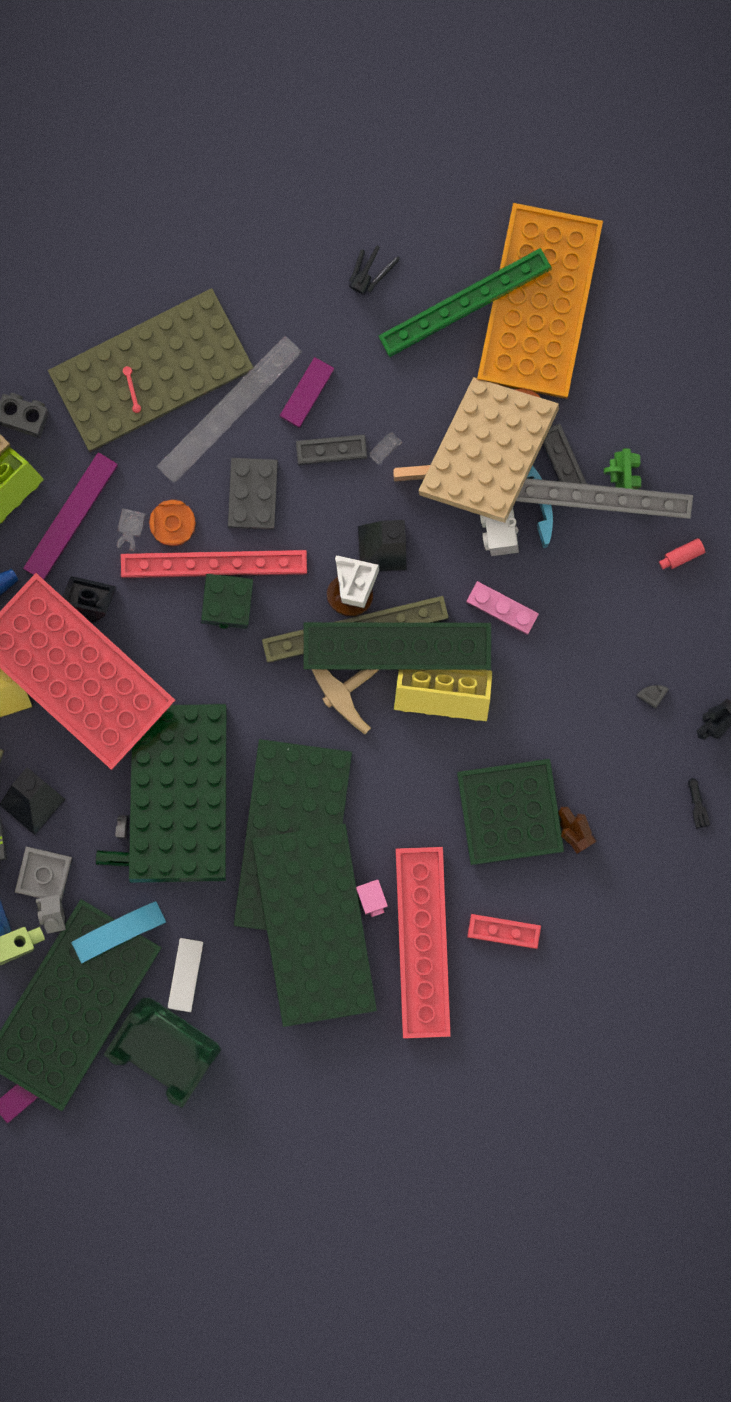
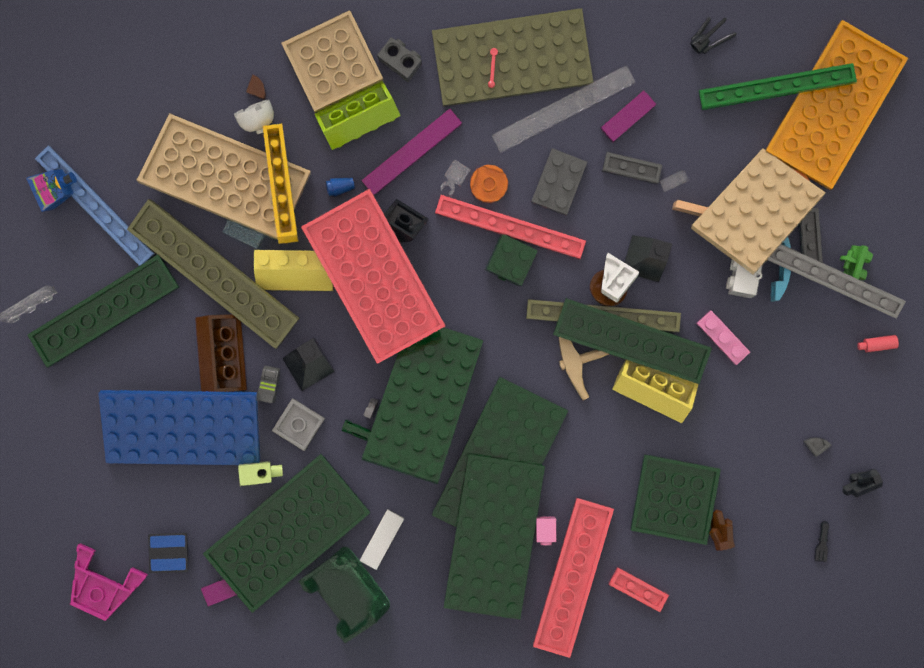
camera: 20 degrees right, 5 degrees up
(51, 913) = (294, 458): light grey brick -> none
(118, 931) = (341, 490): medium azure slope -> none

